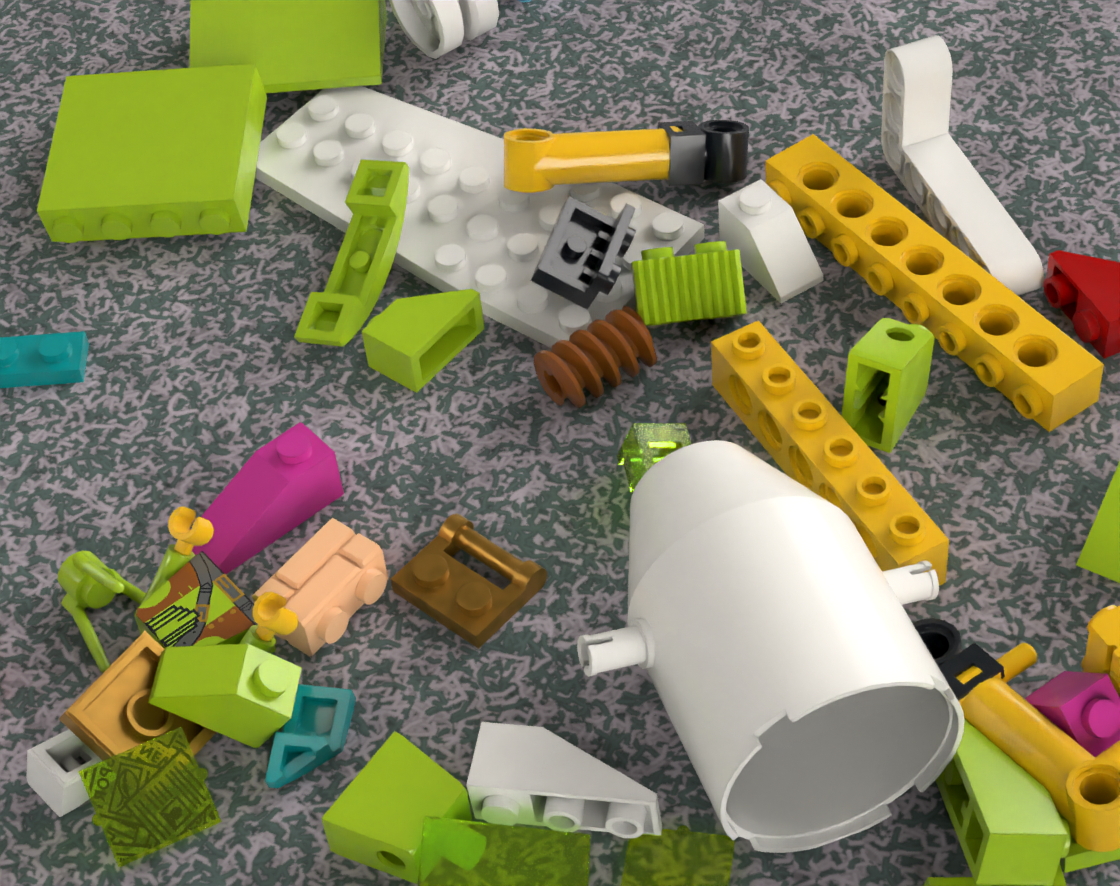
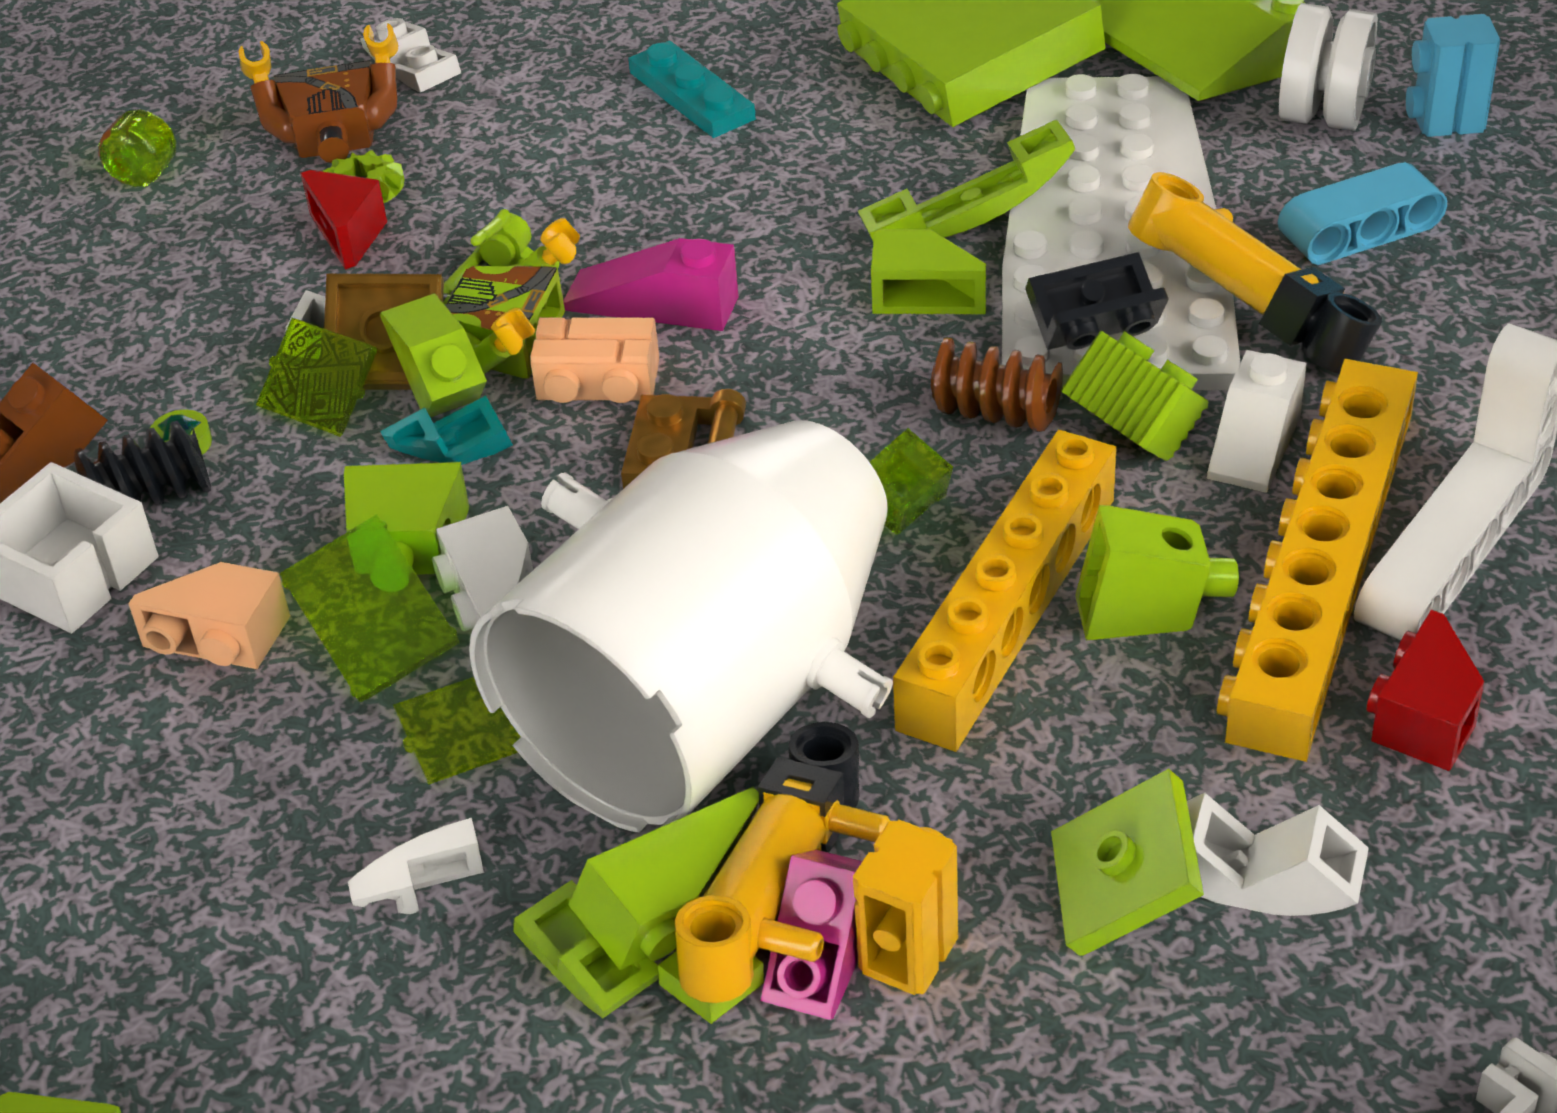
camera: 55 degrees right, 5 degrees down
(595, 74) = (1361, 213): none -> medium azure beam

